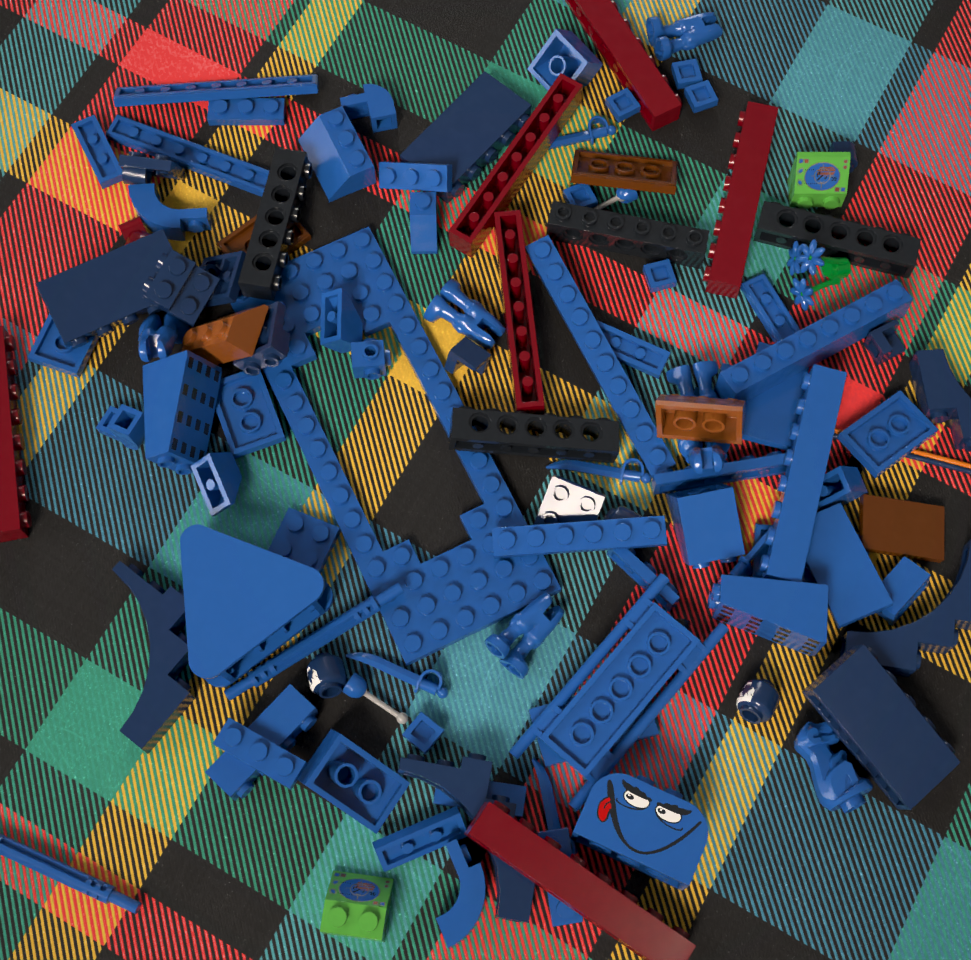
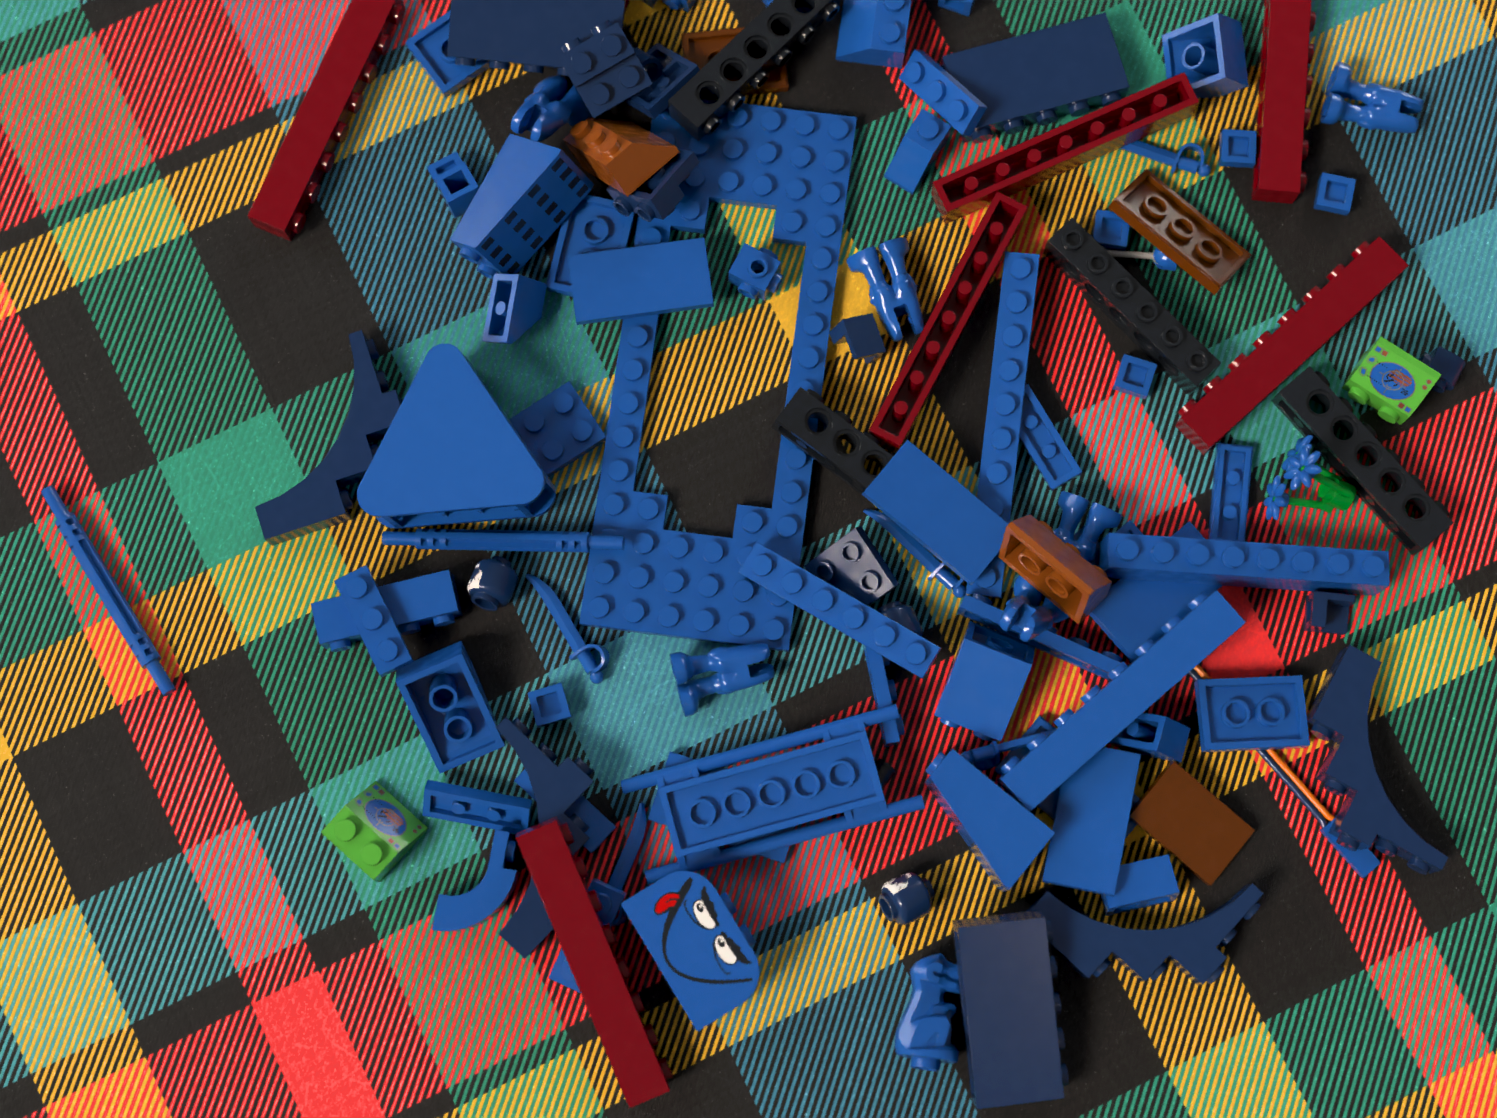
camera: 35 degrees right, 10 degrees up
(295, 410) = (640, 281): none -> blue tile
(339, 321) = (750, 211): blue slope -> none
(357, 687) = (515, 616): hinge -> none
(599, 431) = (938, 512): none -> blue tile
(686, 73) = (1338, 156): blue plate -> none

